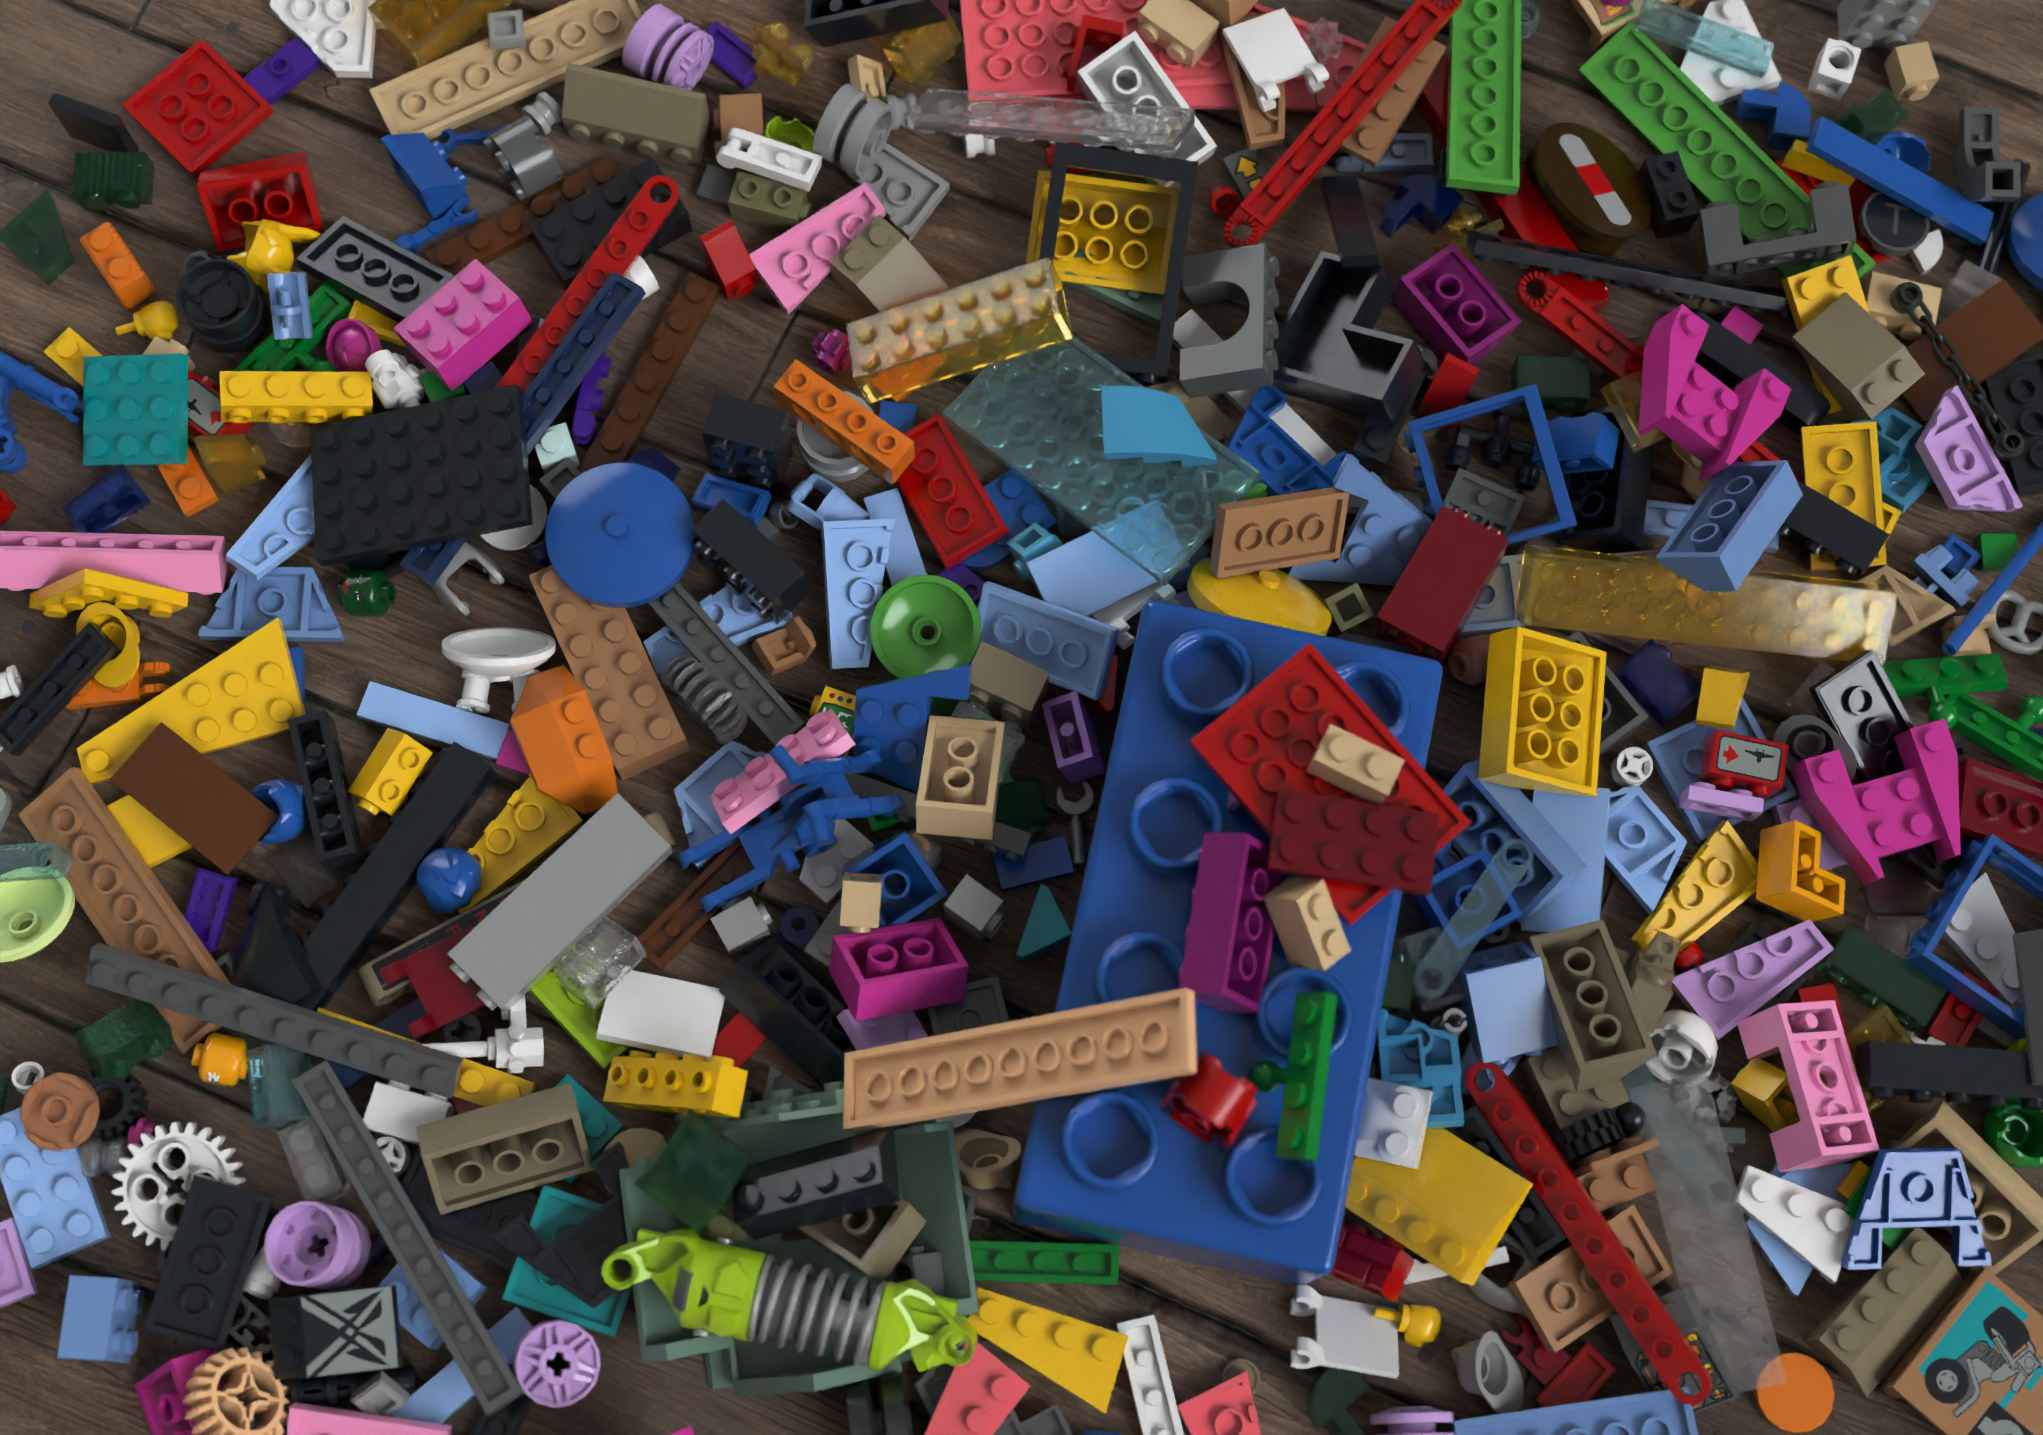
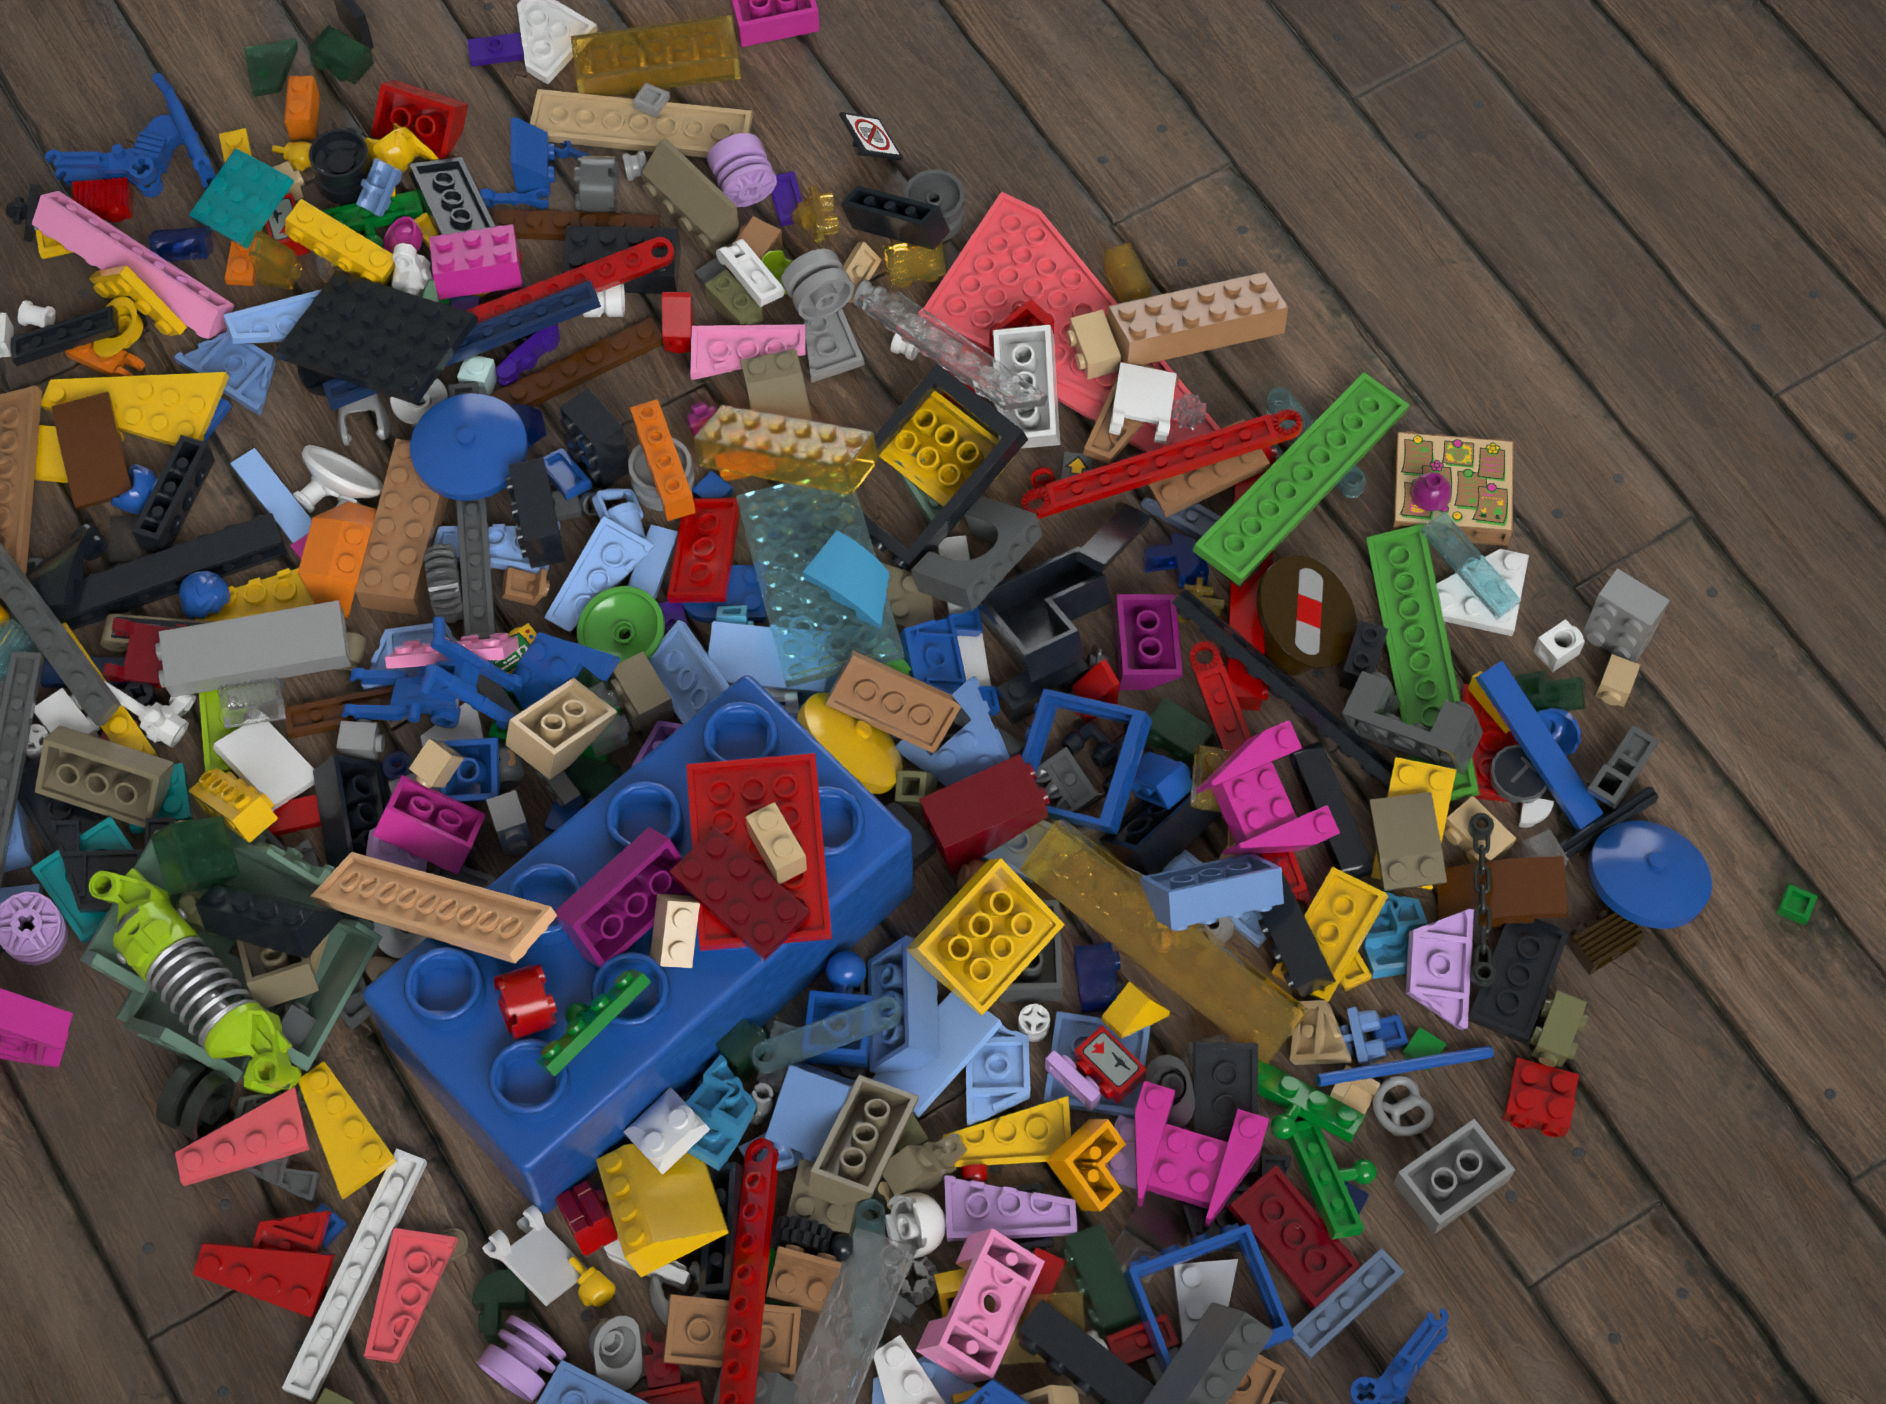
camera: 40 degrees right, 10 degrees down
(197, 108) = (425, 42): red plate -> none
(210, 905) = (52, 523): dark purple plate -> none
(366, 593) = (292, 392): dark green head -> none
(390, 773) = (220, 509): yellow brick -> none
(1045, 1262) = (380, 1078): green plate -> none
(1742, 324) = (1351, 780): dark pink tile -> none
(1783, 111) = (1491, 648): blue brick -> none

